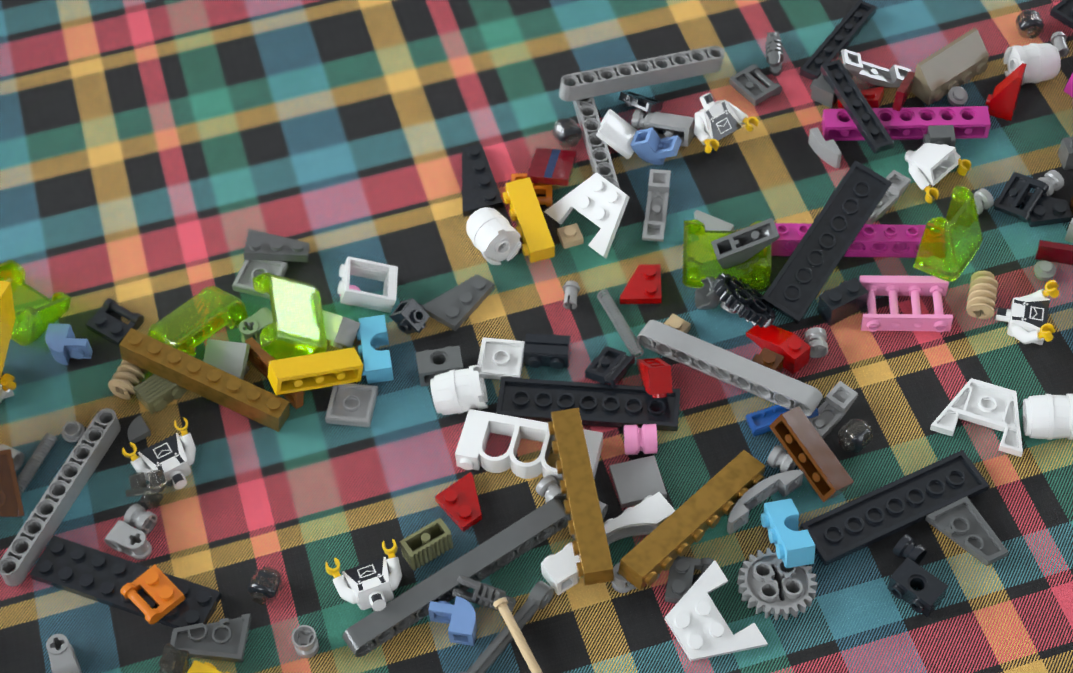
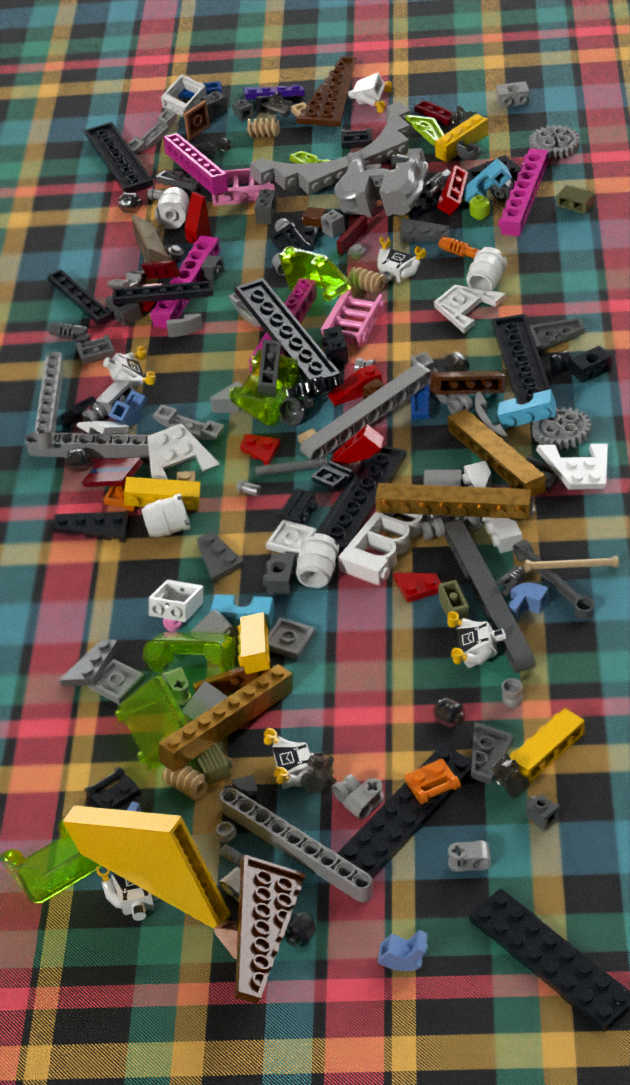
camera: 70 degrees left, 10 degrees down
(410, 316) = (222, 581): black brick -> none
(640, 439) = (409, 470): bright pink wheel -> none
(931, 164) = (233, 273): white torso -> none

